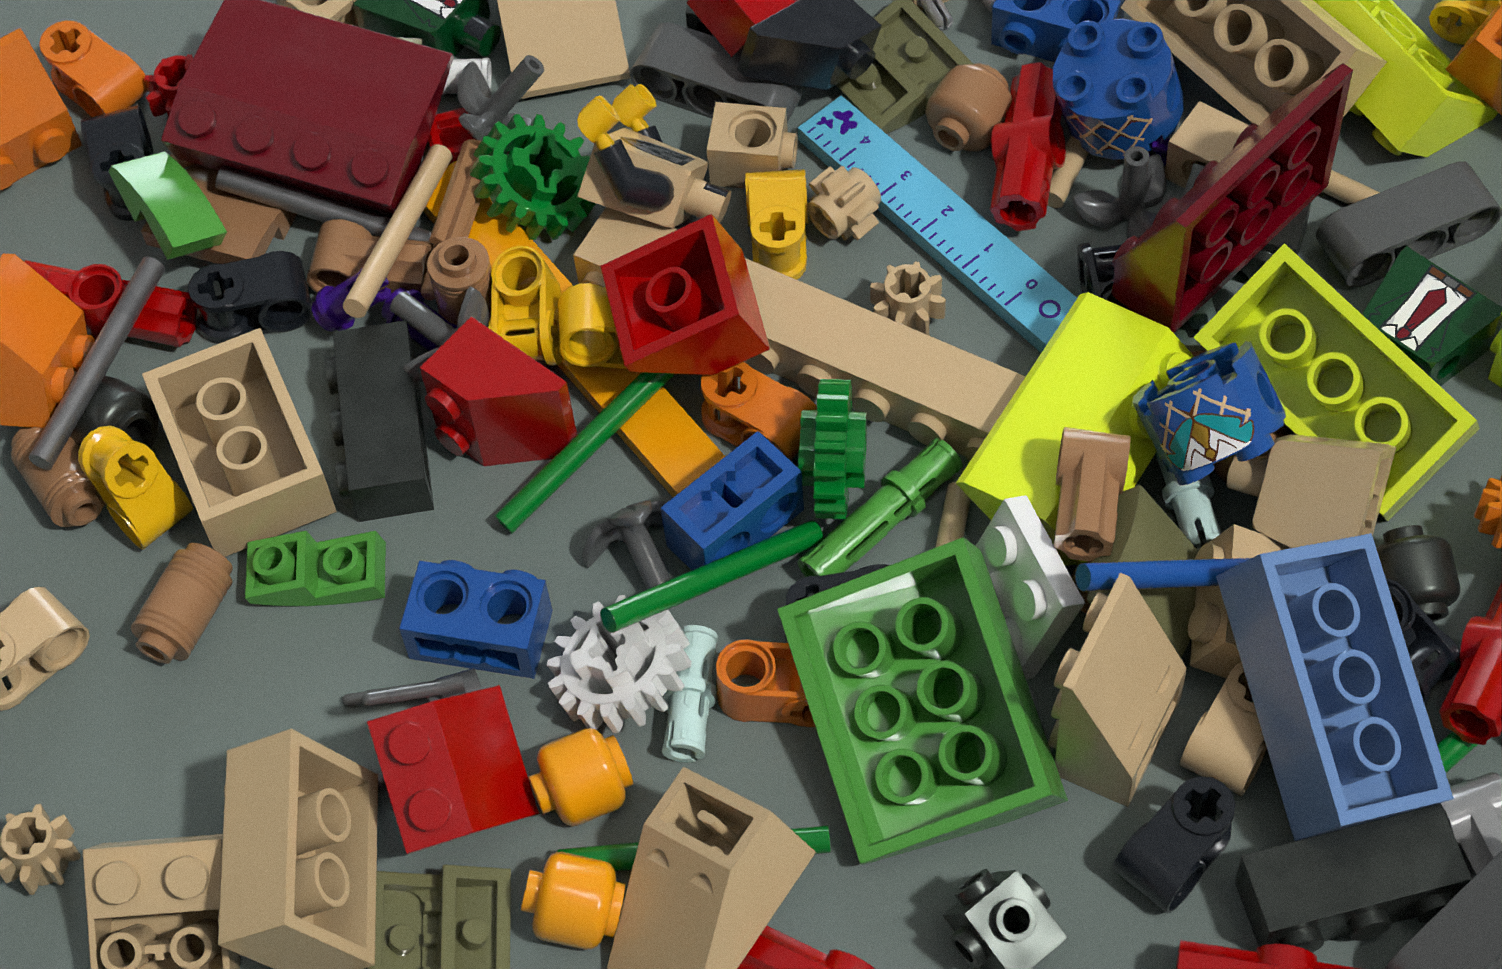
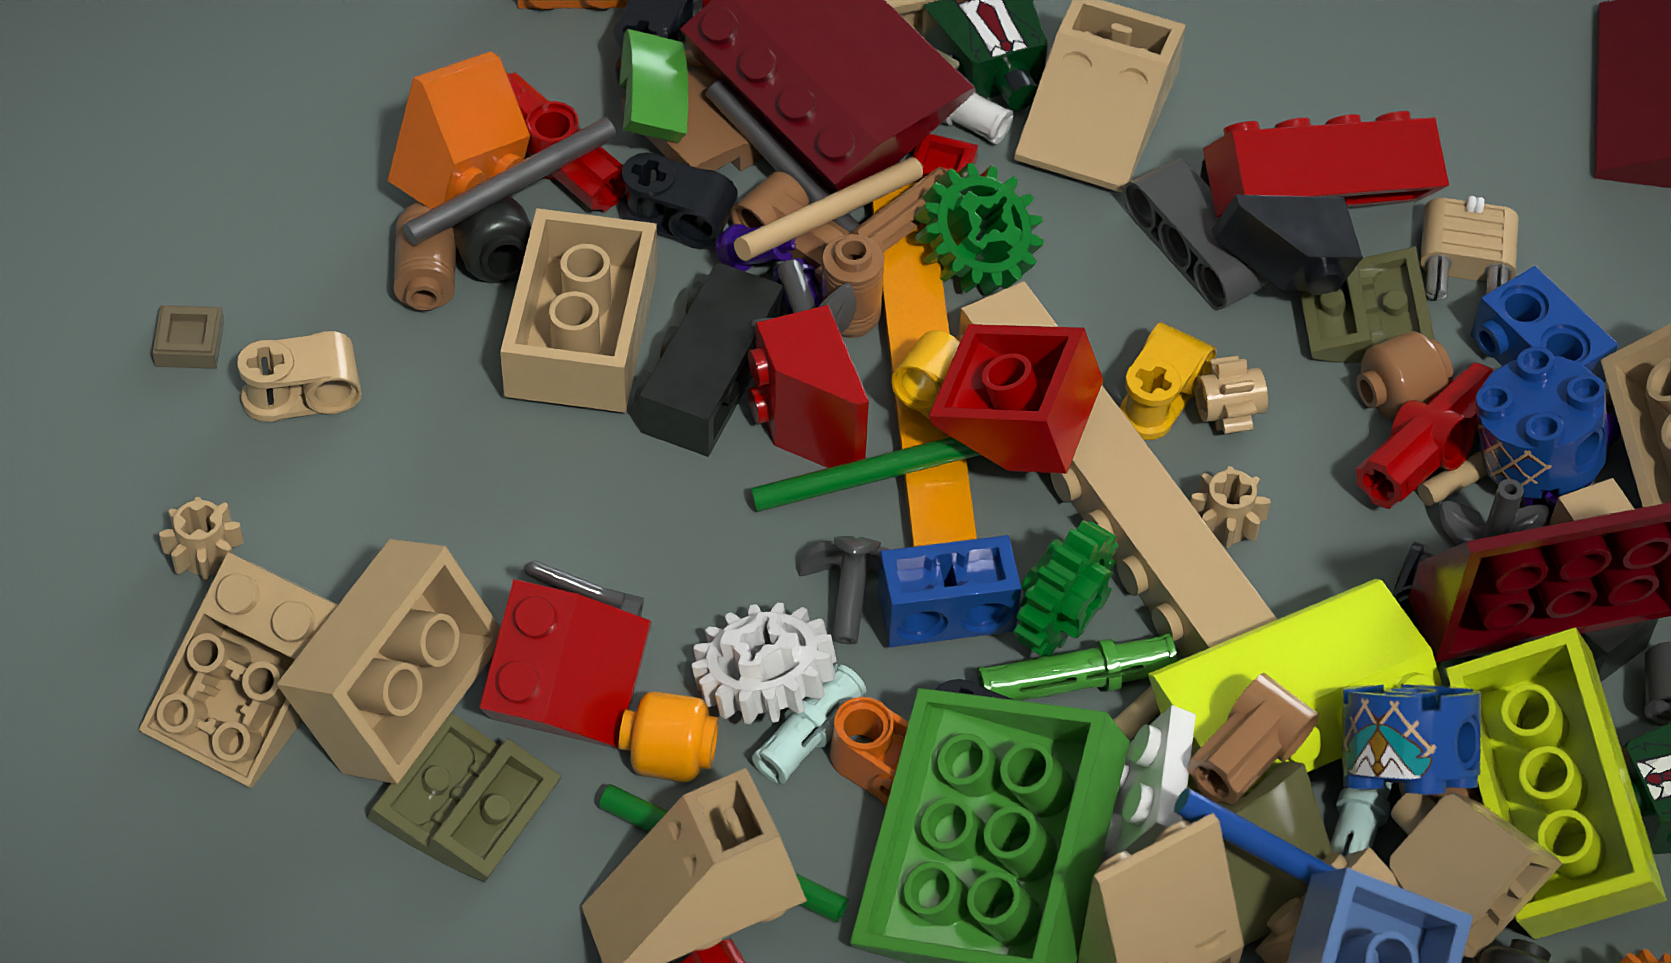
camera: 25 degrees right, 5 degrees down
(135, 488) = (474, 301): yellow piece -> none
(182, 603) = (449, 413): medium nougat head -> none
(312, 573) = (568, 448): bright green slope -> none
(471, 632) = (666, 567): blue brick -> none
(487, 108) = (985, 149): dark grey plant -> none
(528, 315) = (884, 331): yellow piece -> none
(574, 900) = (591, 829): light orange head -> none
(640, 172) = (1066, 268): torso -> none
(710, 576) = (889, 634): green bar -> none
(748, 141) = (1185, 298): tan brick -> none
(756, 406) = (1025, 511): orange piece -> none
(942, 222) = (1308, 452): medium azure tile -> none

